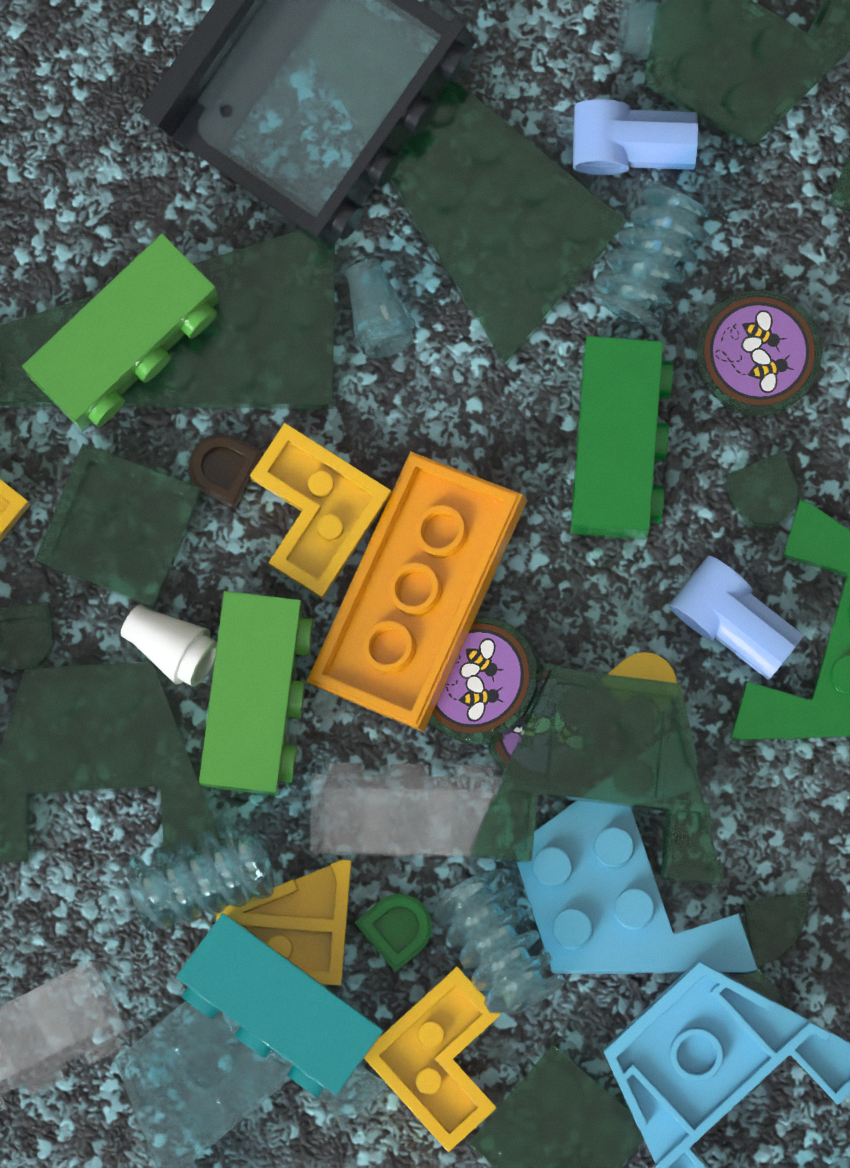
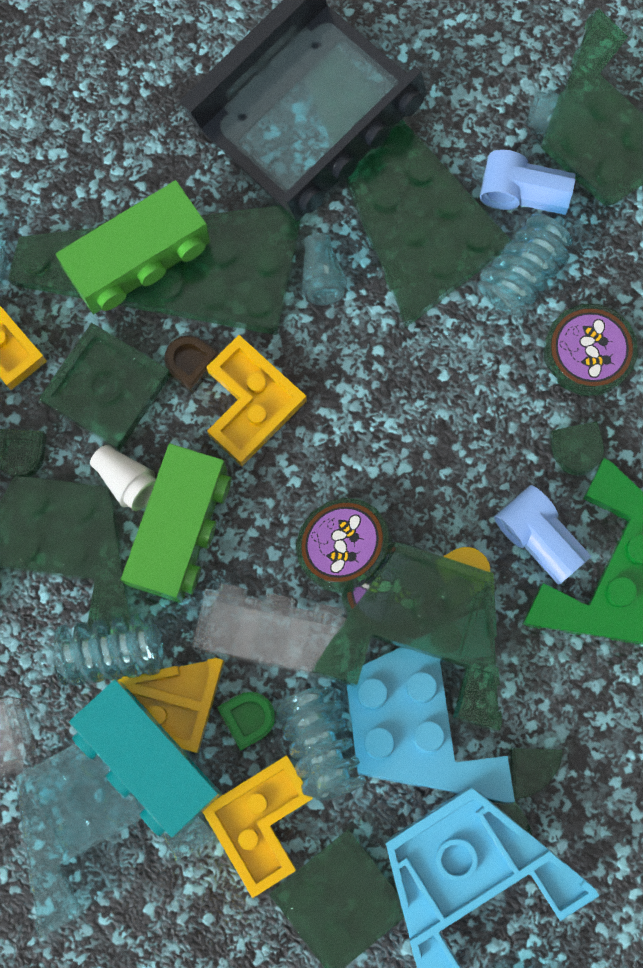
camera: 10 degrees right, 5 degrees down
(417, 591) = (311, 472): light orange tile -> none
(620, 438) = (480, 389): green brick -> none

